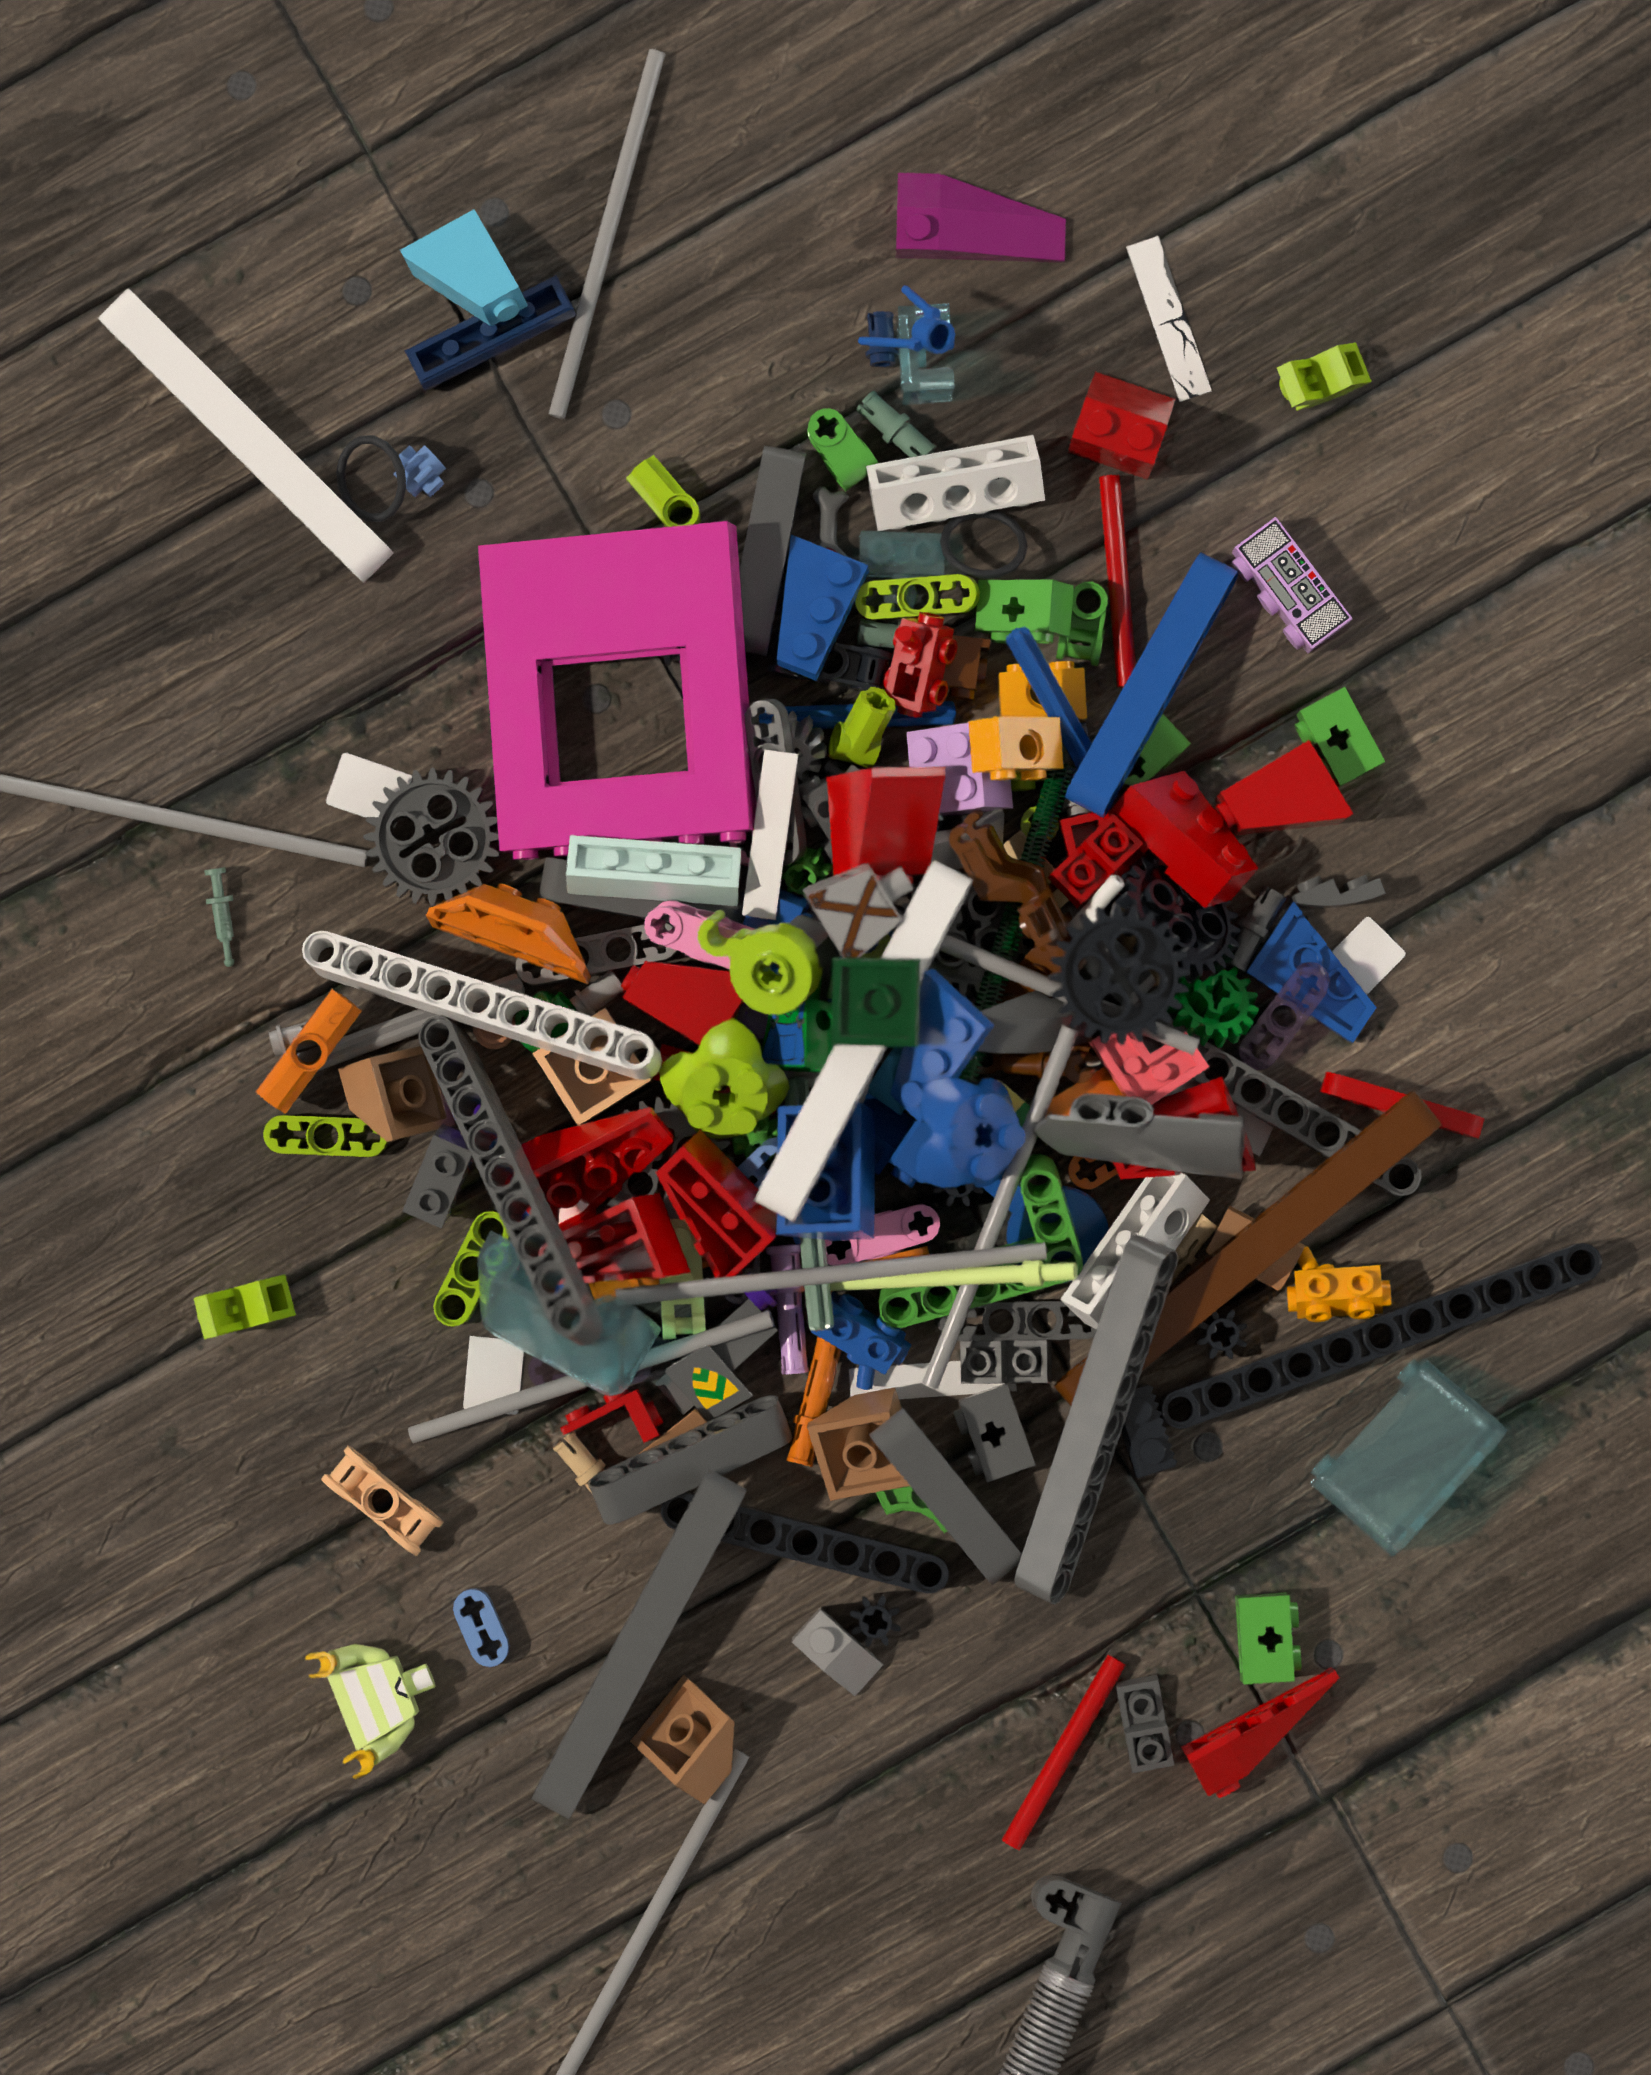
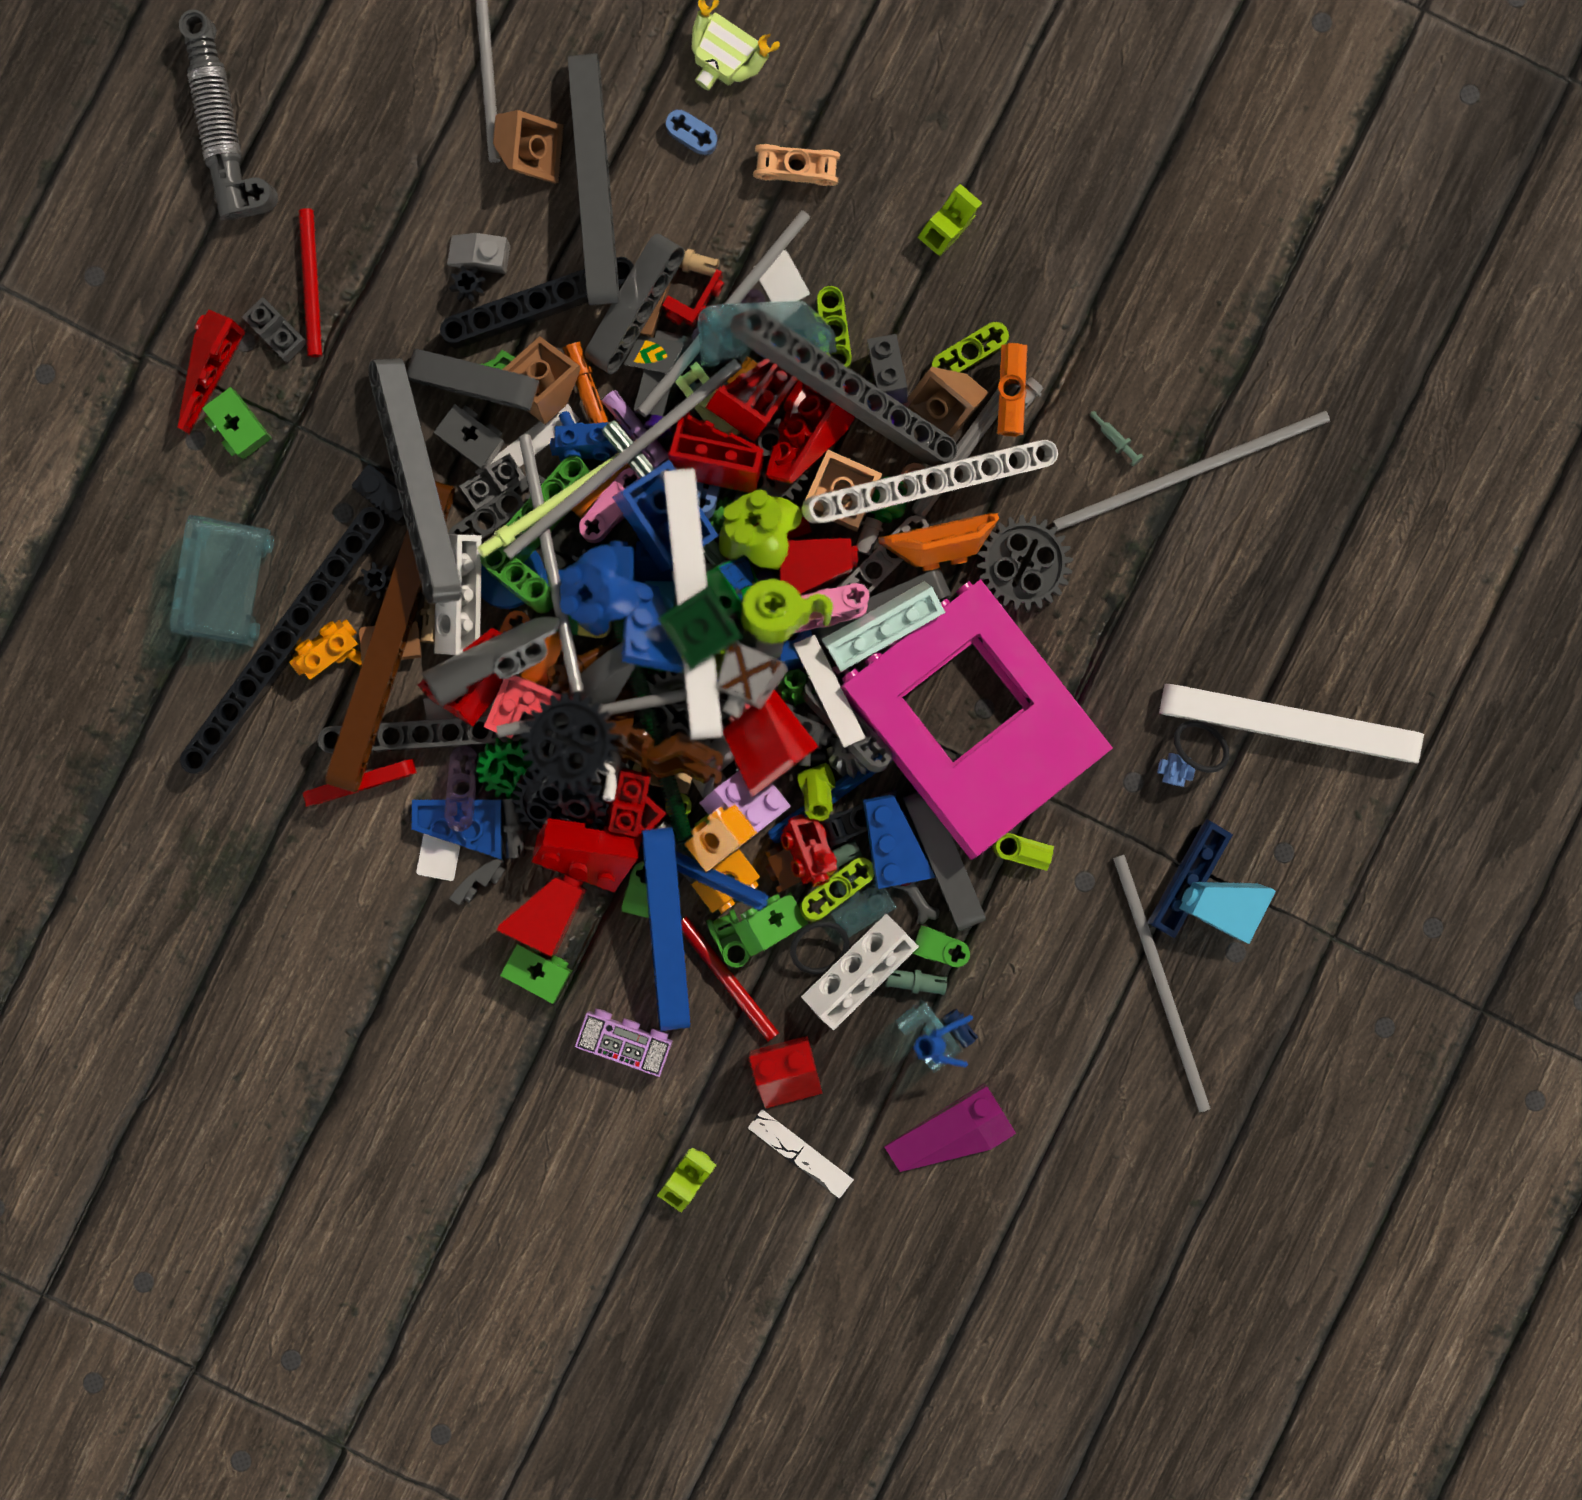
camera: 145 degrees right, 0 degrees up
(360, 783) = (1087, 567): white sticker -> none

